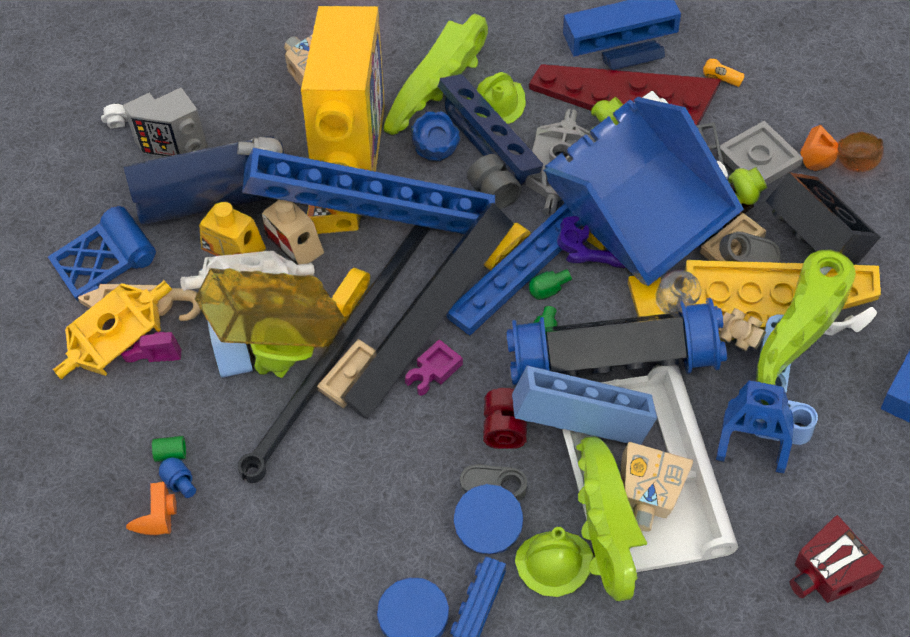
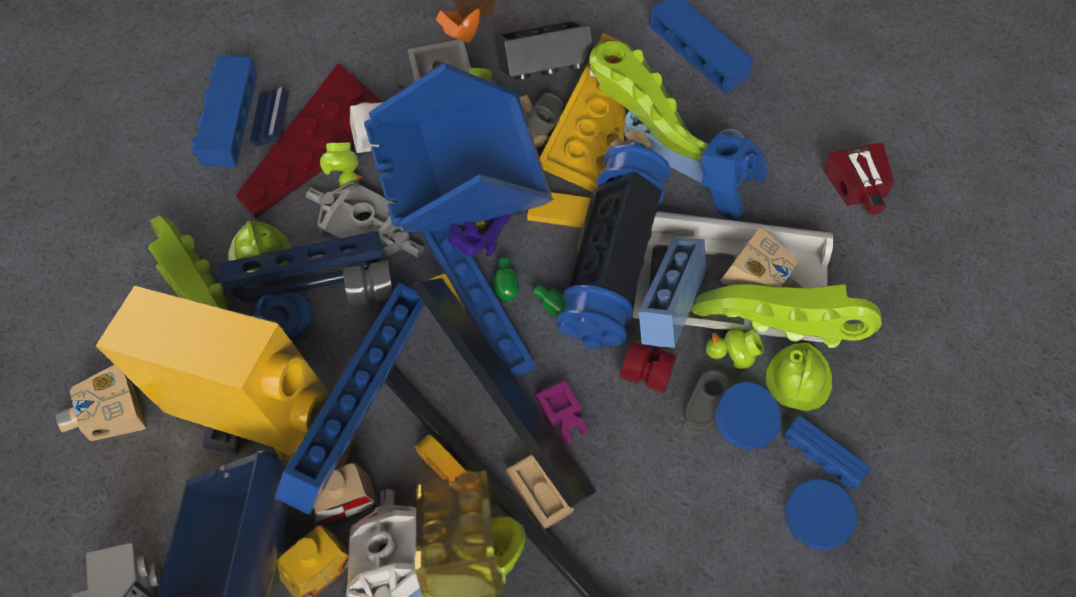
camera: 75 degrees left, 5 degrees up
(264, 143) = (269, 471): light grey cylinder -> none
(559, 491) = (740, 345): none -> lime animal
(676, 287) = (576, 177): clear head -> none
(716, 70) = (326, 63): light orange arm -> none

